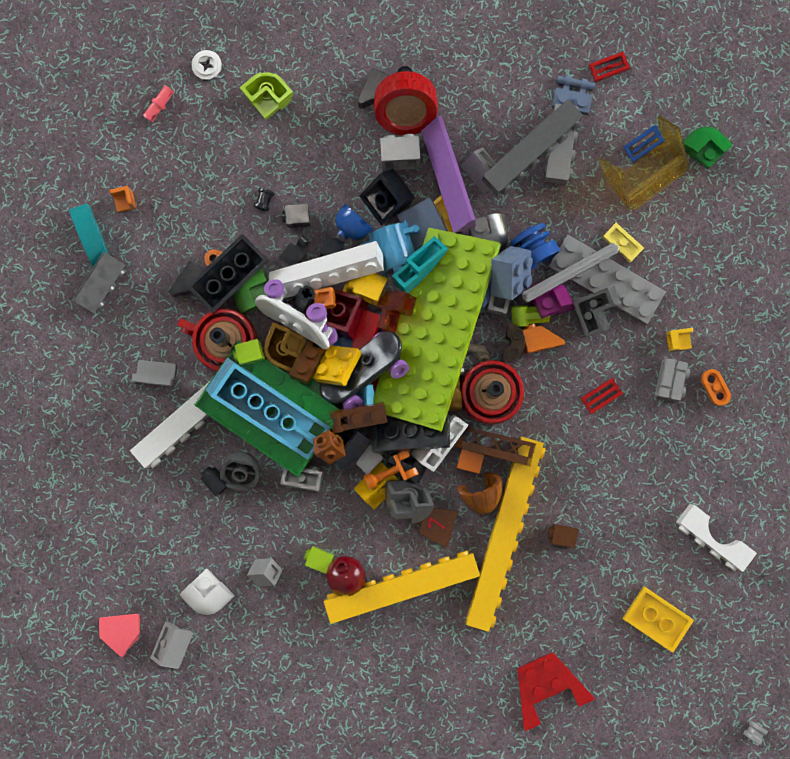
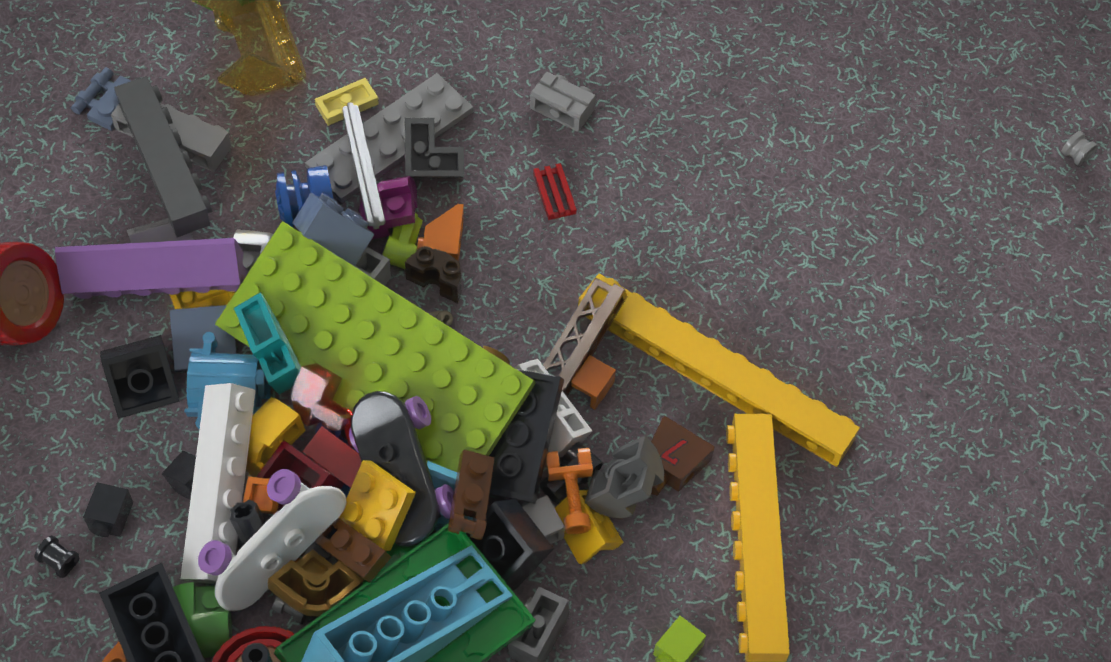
camera: 75 degrees left, 25 degrees down
(249, 352) = (300, 623): lime brick -> none
(293, 253) = (166, 540): black plate -> none
(328, 447) = (503, 549): dark orange brick -> none
(345, 576) = (717, 608): dark red cylinder -> none
(351, 224) = (158, 430): blue cylinder -> none
(400, 152) = (81, 330): light grey brick -> none
(484, 501) = (655, 367): dark orange hair -> none
(491, 392) = (502, 313): red wheel -> none
(544, 679) = (950, 388): red wing -> none
(562, 535) = (742, 293): reddish brown brick -> none
(619, 55) = (90, 65): red tile -> none
(658, 134) = (224, 57): blue tile -> none
(658, 619) = (895, 215): yellow plate -> none
(679, 339) = (508, 79): yellow panel -> none
(715, 387) = (591, 56): orange plate -> none
(736, 553) = (772, 131): white arch -> none

